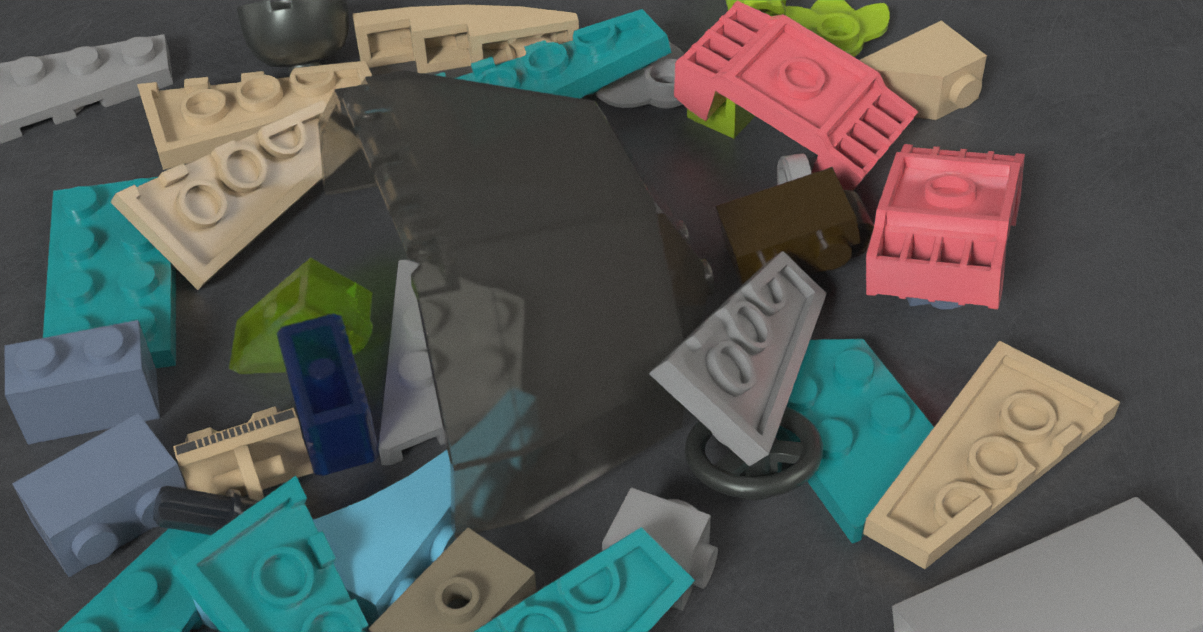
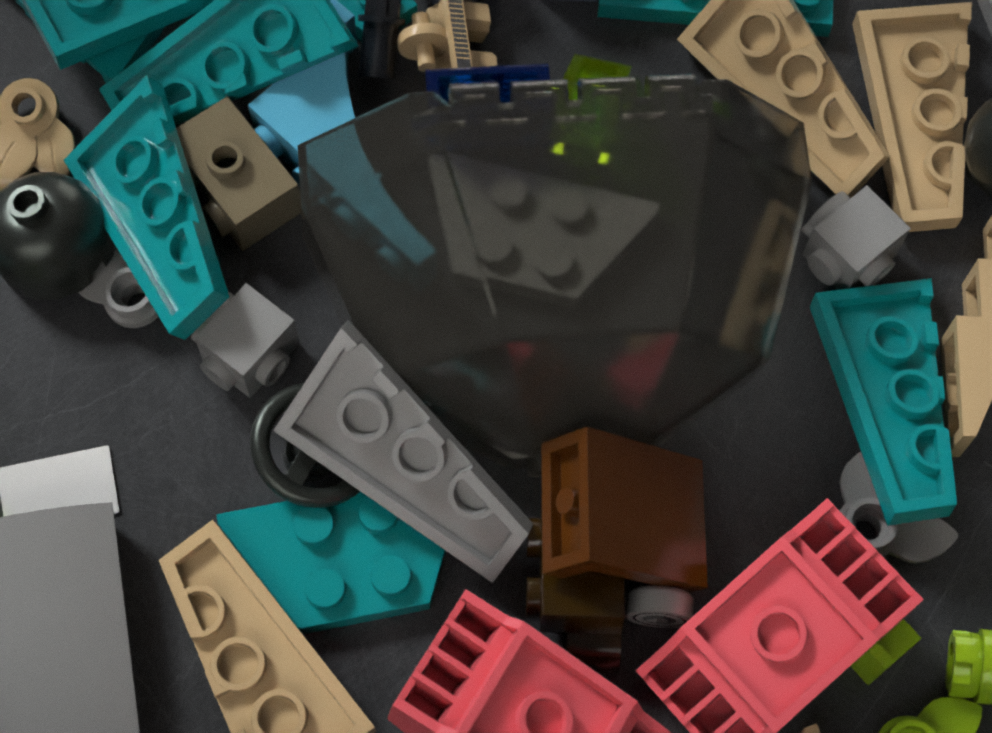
camera: 100 degrees right, 20 degrees up
(742, 193) = (622, 510): none -> reddish brown panel

